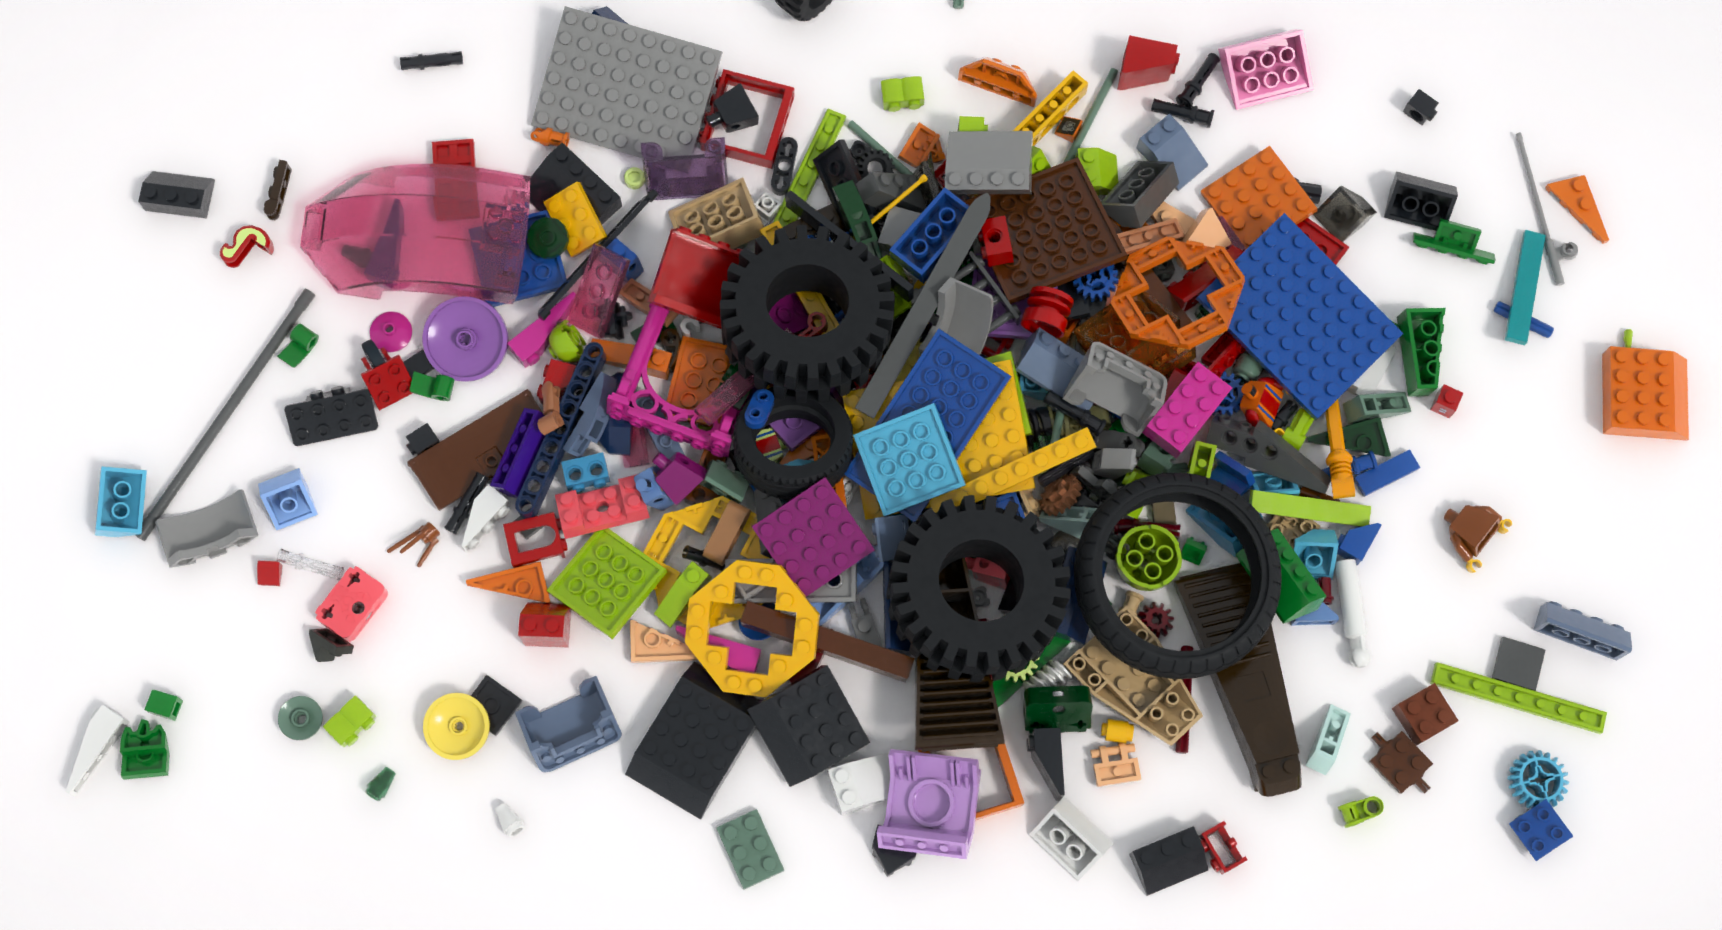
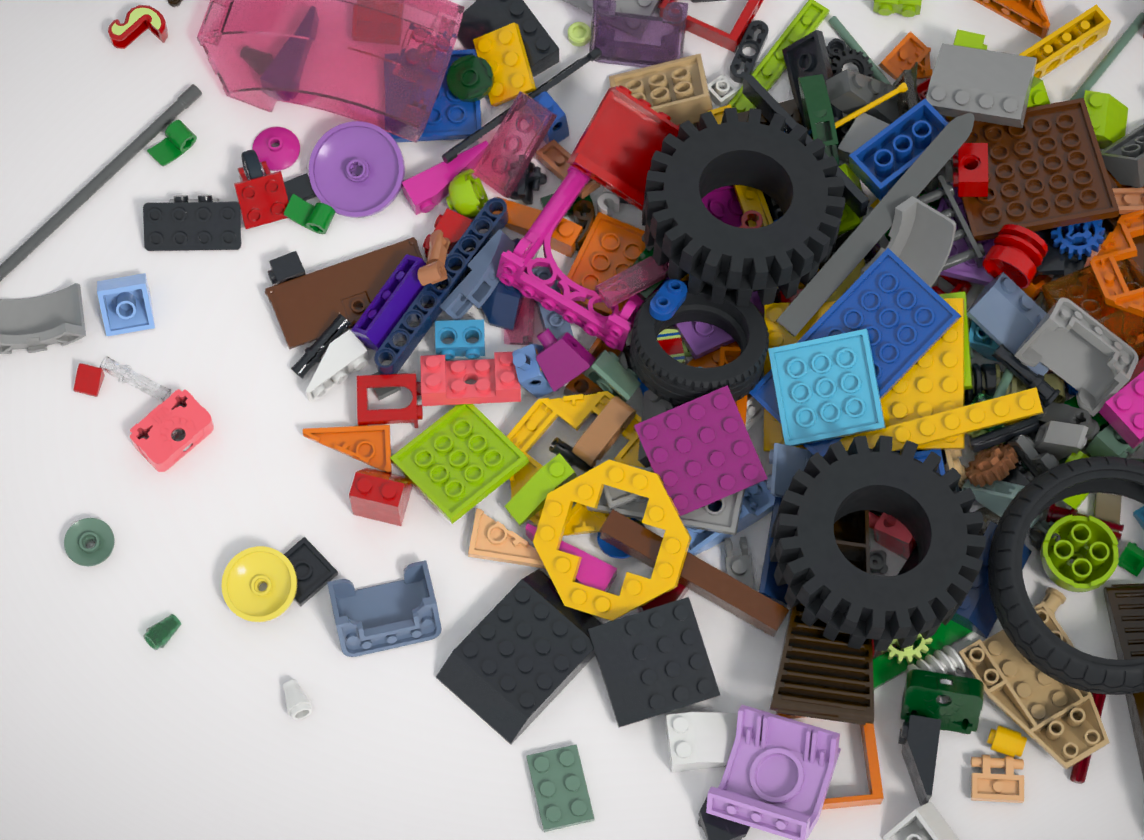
camera: 15 degrees right, 5 degrees down
(328, 645) = (136, 469): pearl dark grey slope -> none
(350, 722) = (143, 557): lime brick -> none
(426, 534) = (269, 371): dark orange plant -> none
(1068, 128) = (1079, 69): slope -> none
(1164, 623) = (1082, 621): dark red gear -> none

